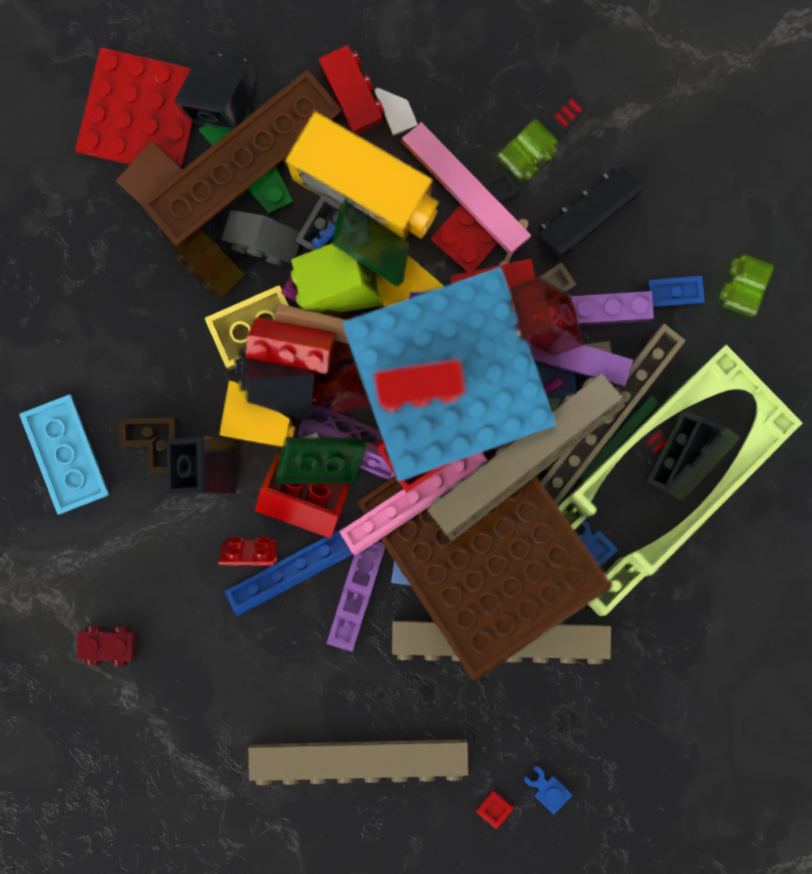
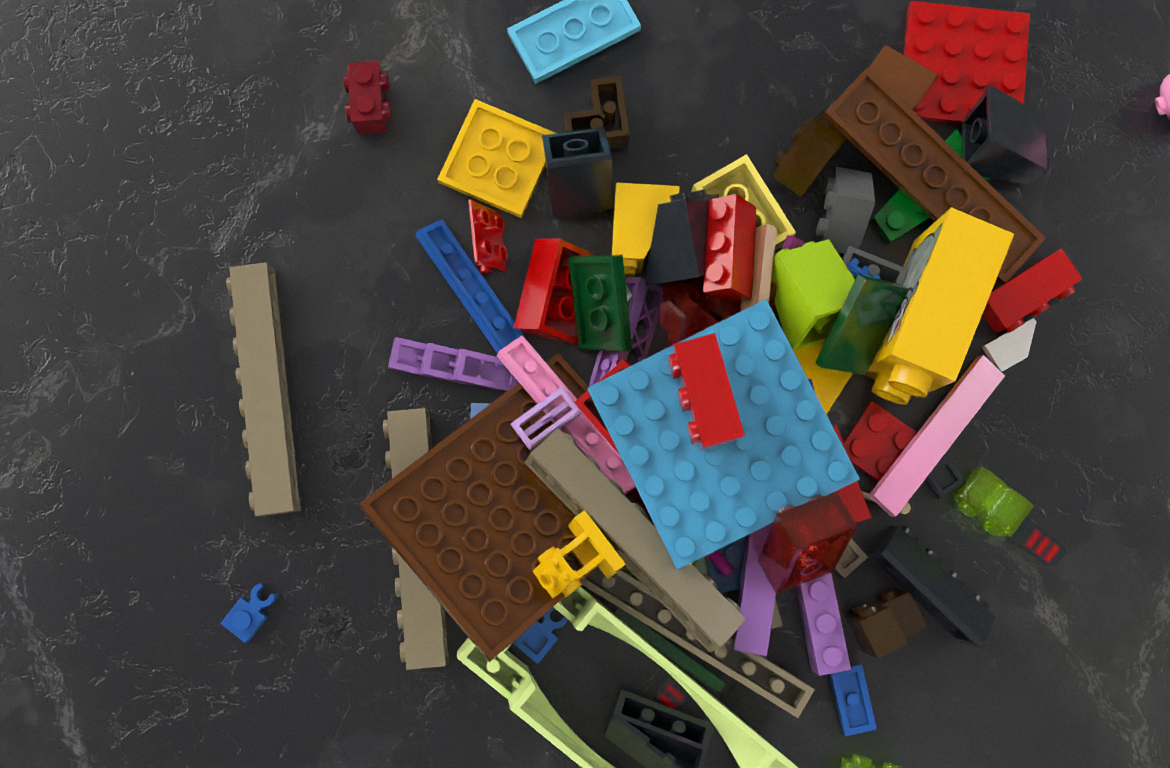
camera: 85 degrees right, 5 degrees down
(175, 536) = (496, 159): none -> yellow plate
(427, 539) = (531, 444): none -> lavender tile
(494, 809) = (222, 553): red tile -> none
(531, 494) = (589, 549): none -> yellow tile
(616, 254) = (886, 623): none -> dark brown brick

